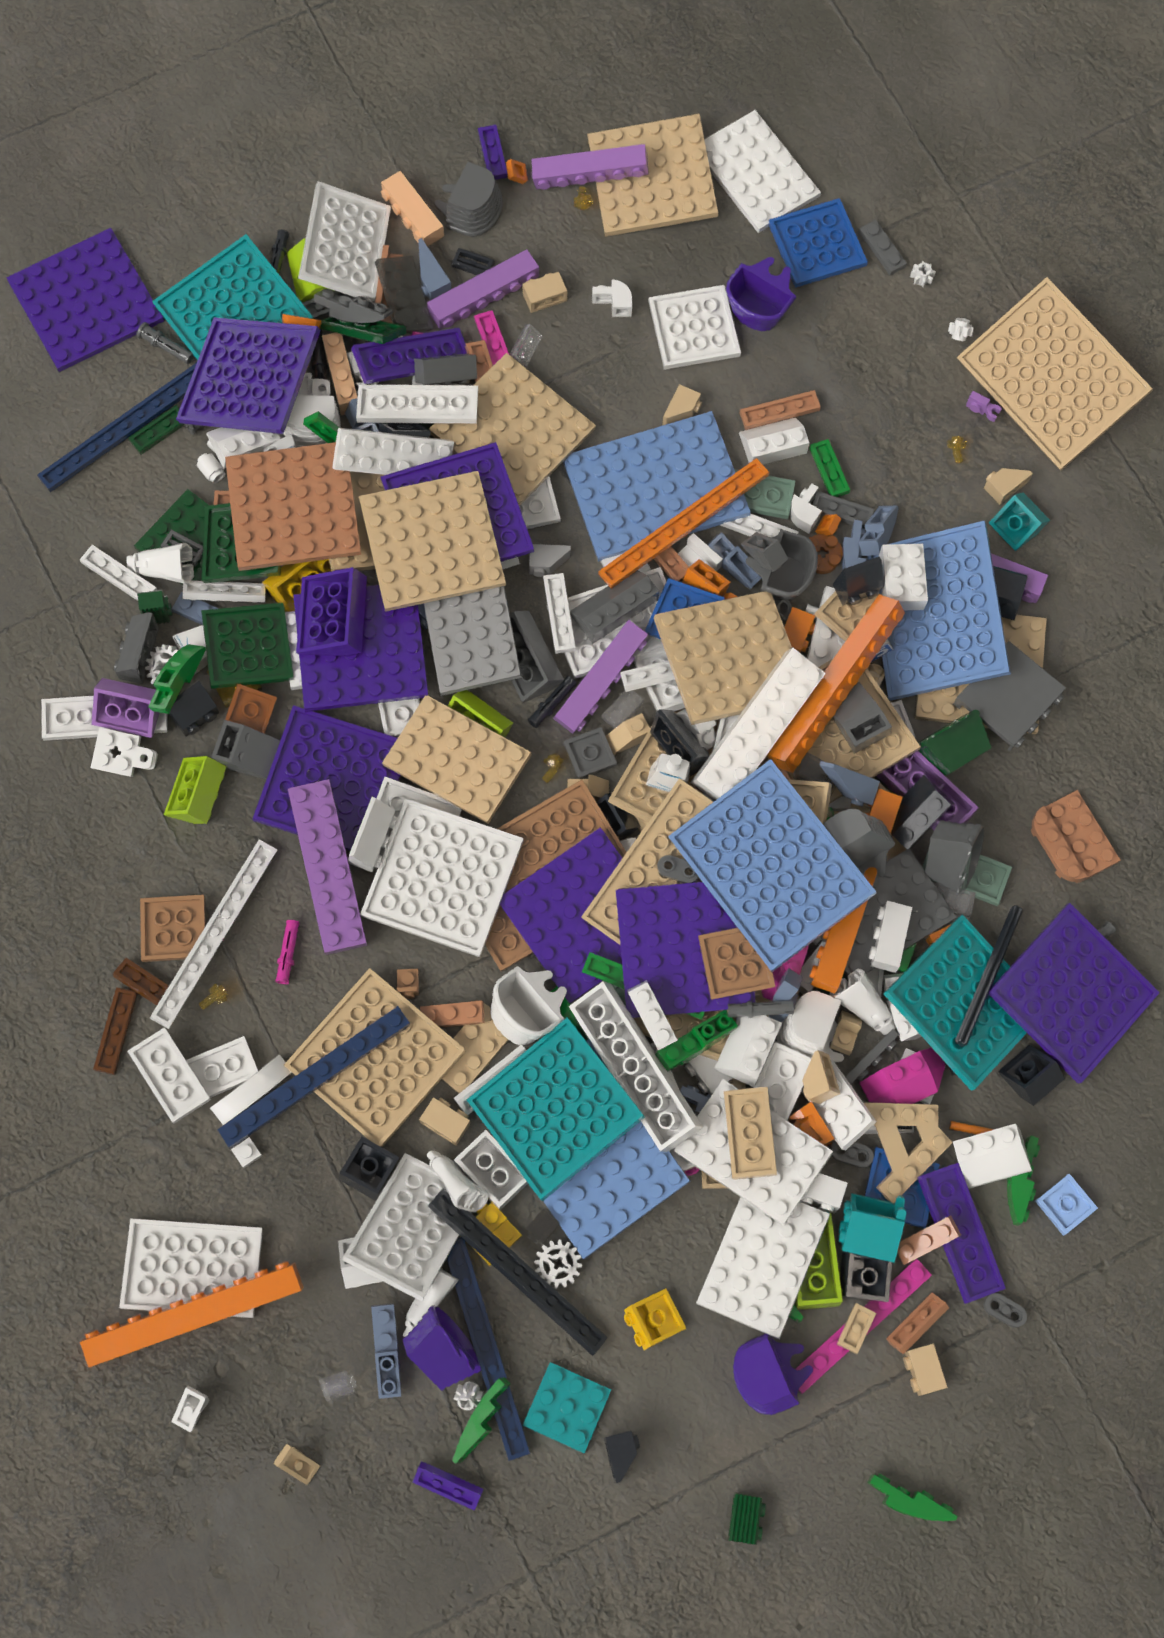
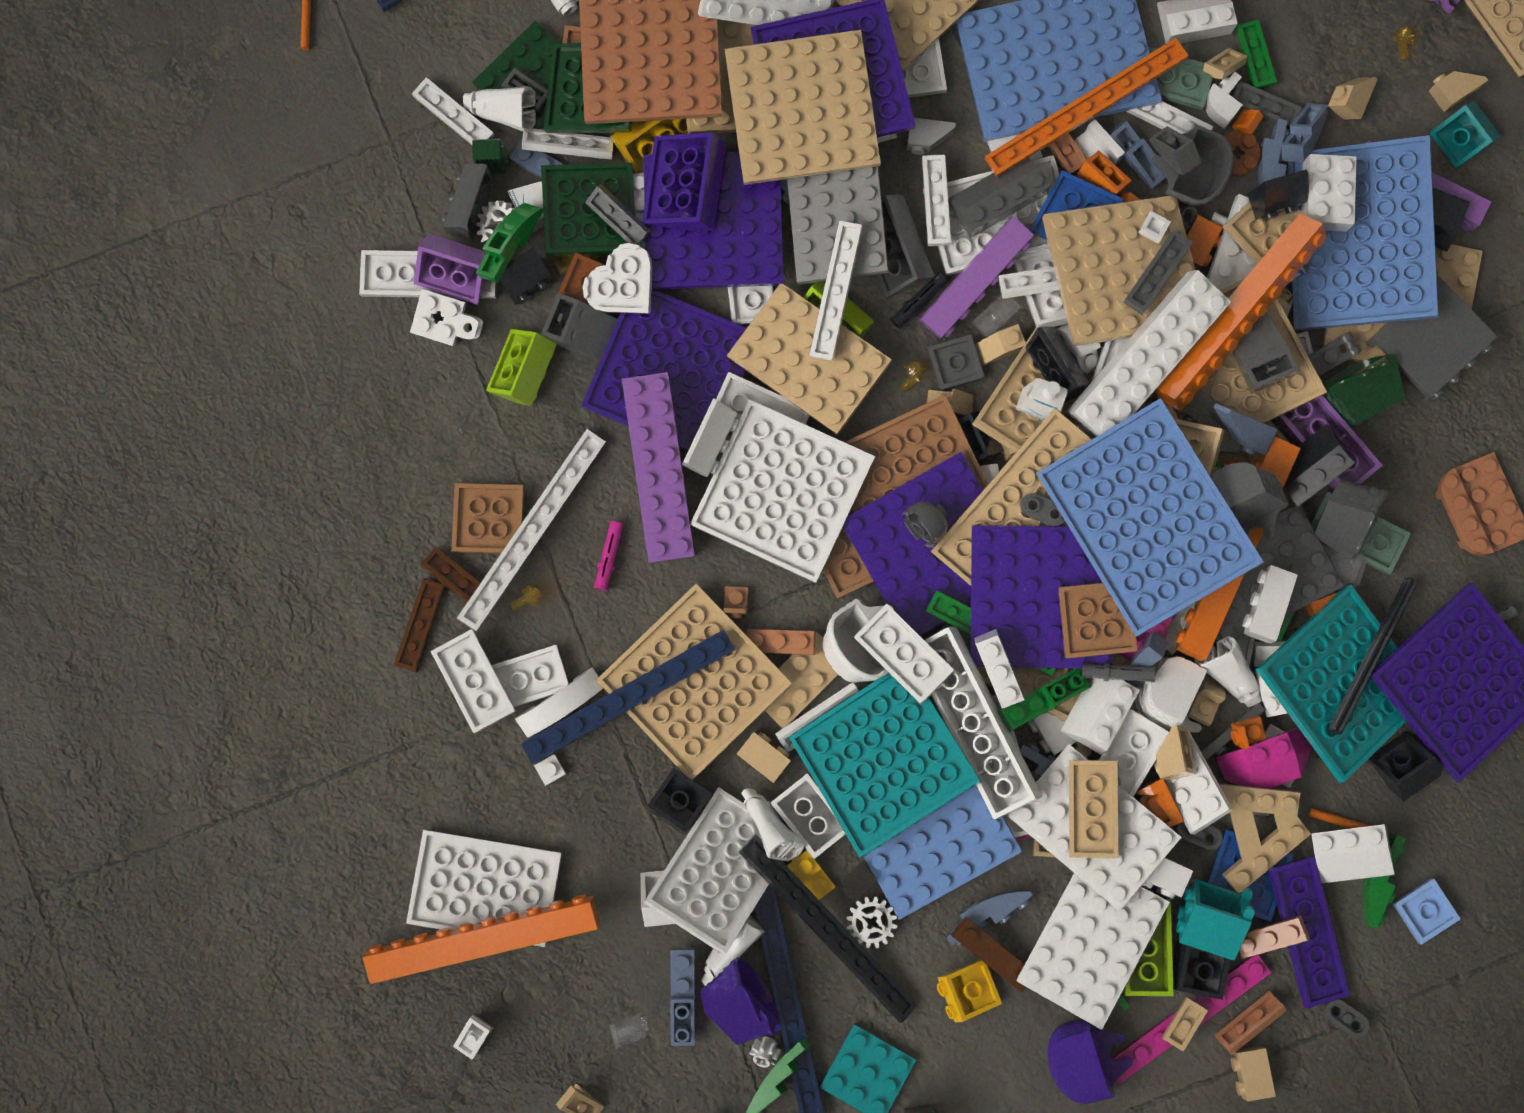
camera: 15 degrees right, 10 degrees up
(274, 648) = (617, 216): none -> dark grey plate
(282, 706) = (622, 283): none -> white plate
(475, 696) = (836, 290): none -> white plate
(564, 1009) = (904, 654): none -> white plate
(574, 890) = (926, 522): none -> dark grey cylinder
(669, 1279) = (989, 951): none -> reddish brown plate
(671, 1239) = (995, 907): none -> sand blue slope
(753, 617) = (1154, 227): none -> white plate
(759, 655) = (1157, 272): none -> dark grey plate
(802, 477) = (1225, 63): none -> tan plate
(884, 1054) = (1247, 732): none -> orange bracket
(917, 498) = (1352, 97): none -> tan slope
(922, 718) = (1330, 354): none -> dark grey plate

